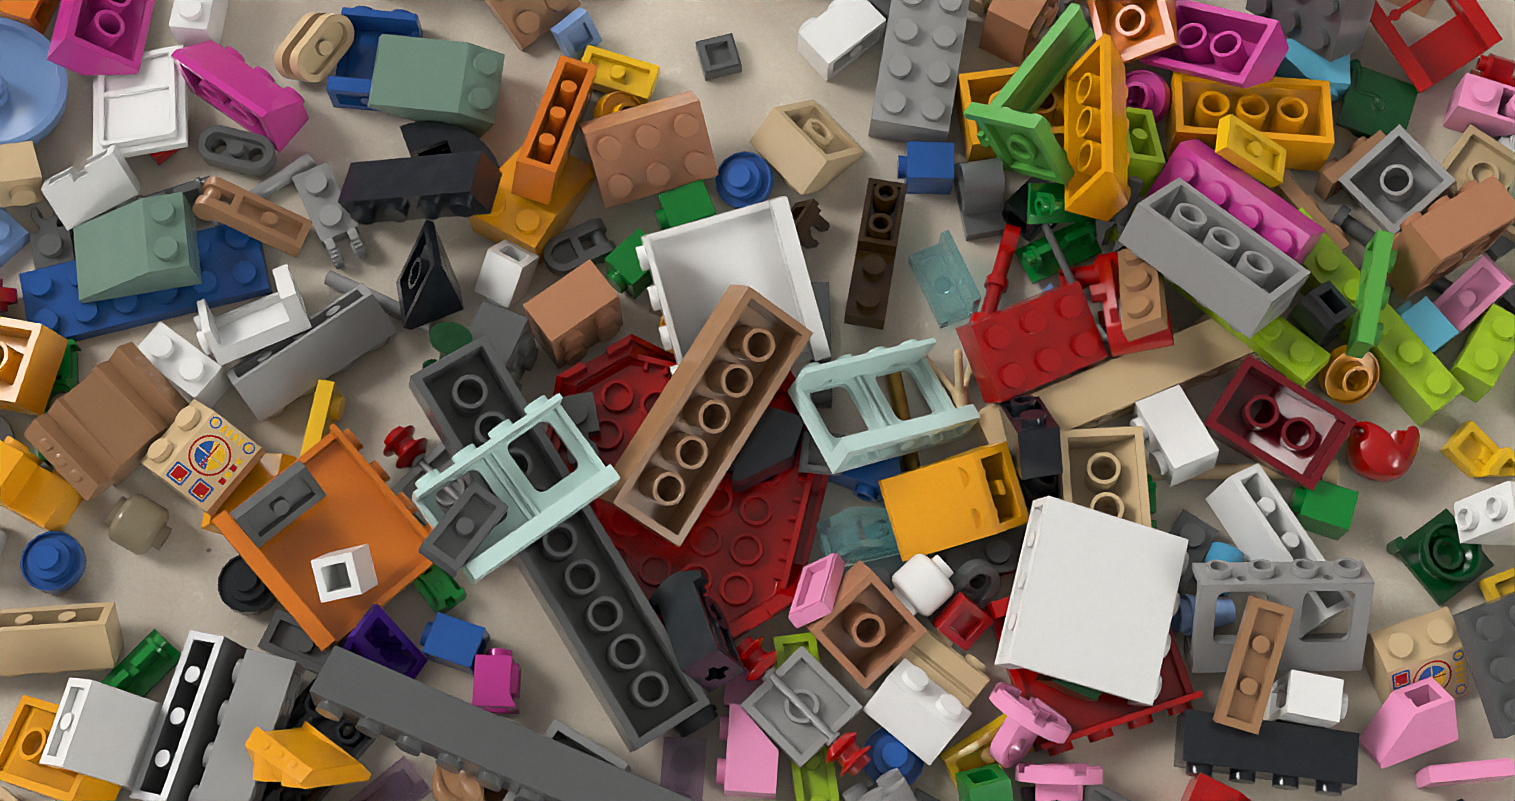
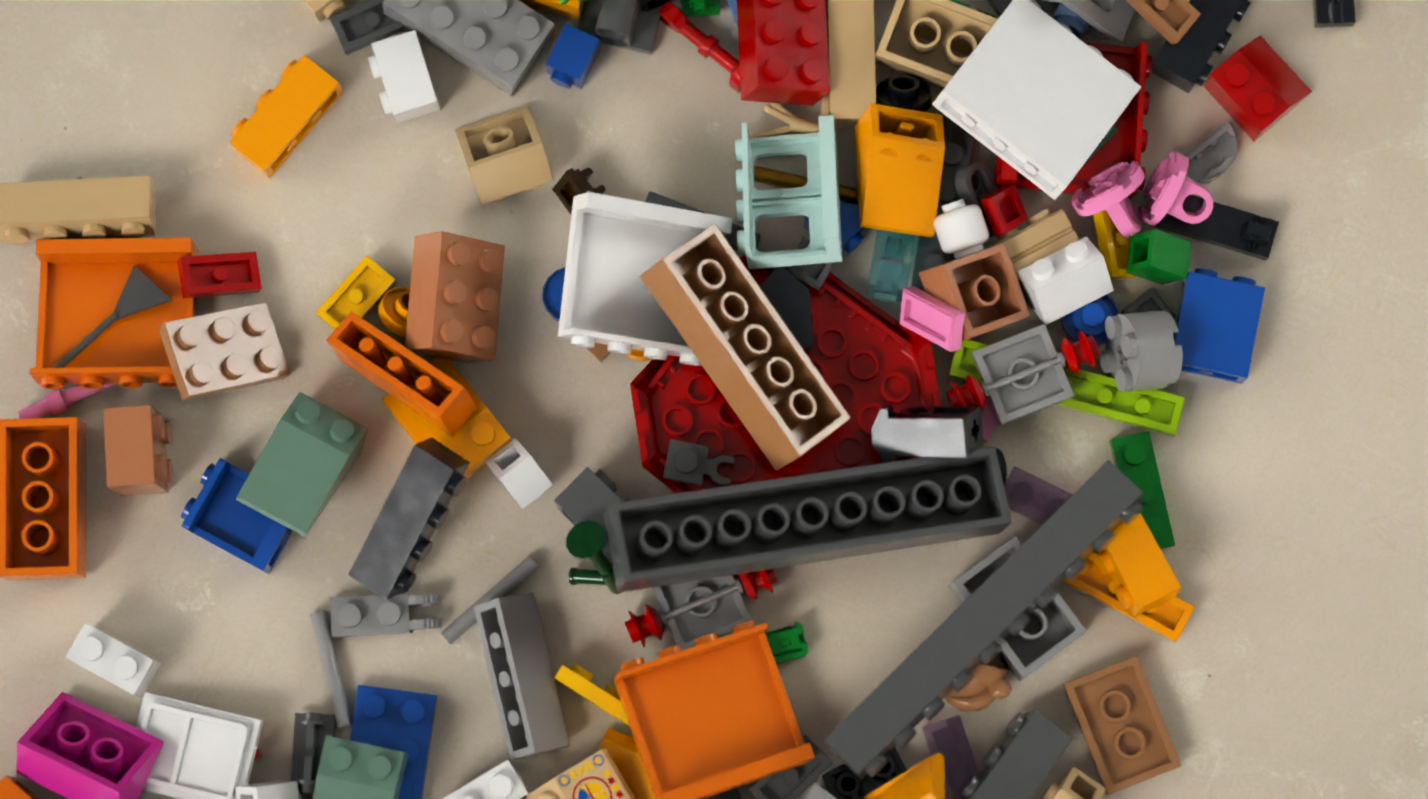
camera: 65 degrees left, 10 degrees up
(239, 151) = (280, 676): dark grey plate -> none
(242, 92) = (227, 649): dark pink slope -> none
(252, 215) = (363, 683): medium nougat plate -> none
(255, 323) = (472, 715): white panel -> none
(278, 504) = (670, 747): dark grey plate -> none
(314, 46) = (209, 567): tan brick -> none
(344, 573) = (755, 712): white brick -> none
(384, 643) = (824, 709): dark purple slope -> none
(427, 282) = (500, 548): black slope -> none
(441, 138) = (376, 466): black brick -> none
(454, 642) = (842, 647): blue brick -> none
(463, 529) = (784, 586): dark grey plate -> none
(496, 682) = (891, 623): dark pink window -> none
(529, 511) = (785, 527): light aqua window -> none
(566, 253) = (519, 413): dark grey plate -> none
(574, 314) = (587, 426): nougat brick -> none
(576, 33) = (298, 319): medium blue tile -> none
(624, 267) = (555, 357): green brick -> none
(683, 205) = (523, 290): green brick -> none
(718, 56) = (374, 197): dark grey tile -> none
(744, 180) = (516, 225): blue plate -> none
(750, 757) = (1042, 436): bright pink slope -> none
(875, 253) = (636, 139): dark brown slope -> none
(945, 281) = (686, 89): clear light blue panel -> none
(1031, 437) = (874, 80): black slope -> none

